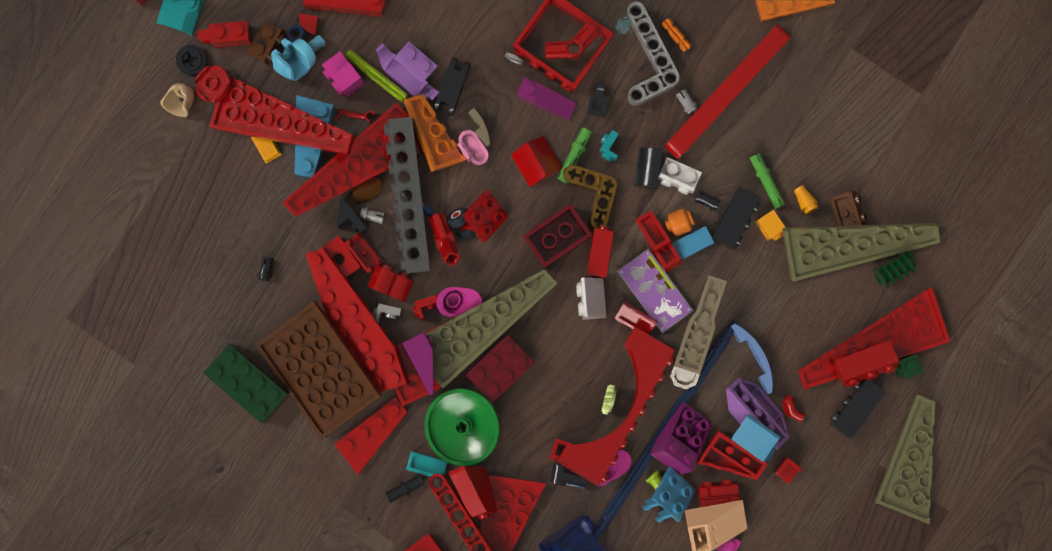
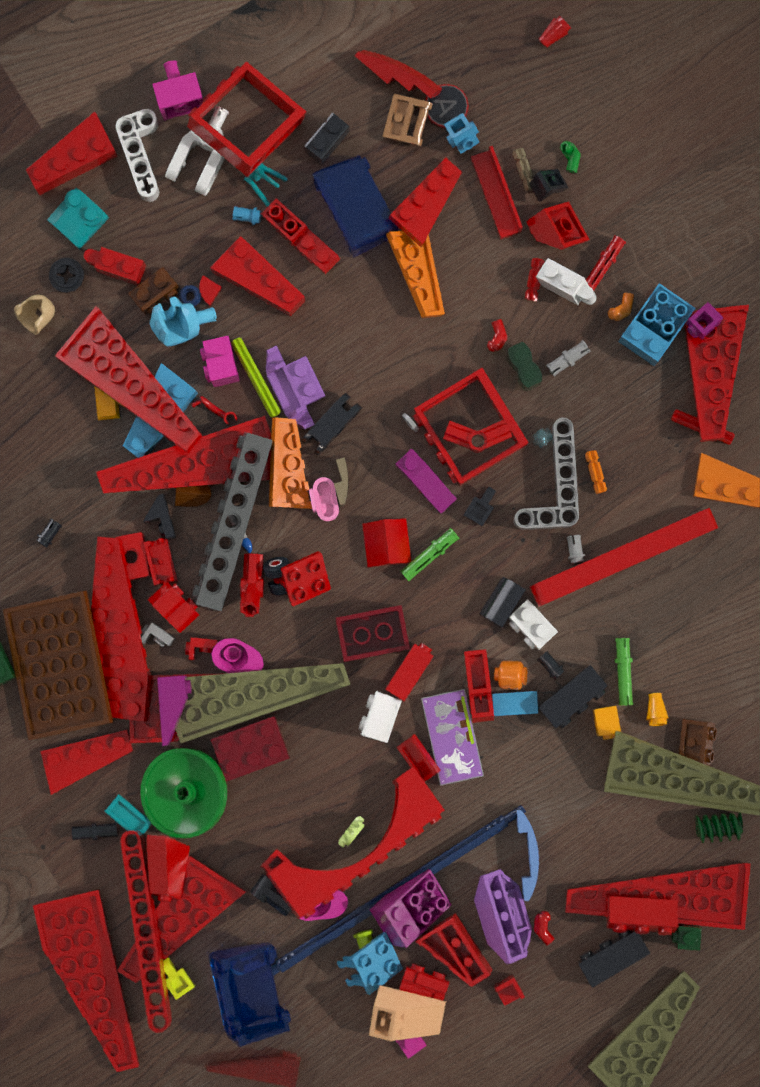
camera: 25 degrees right, 0 degrees up
(212, 84) = (78, 311): red tile -> none
(372, 215) = (186, 525): light grey pin -> none
(597, 186) = (440, 599): pearl gold beam -> none
(608, 140) = (472, 555): teal bracket -> none
(698, 335) = (476, 805): dark tan piece -> none
(756, 439) = (489, 943): dark azure slope -> none

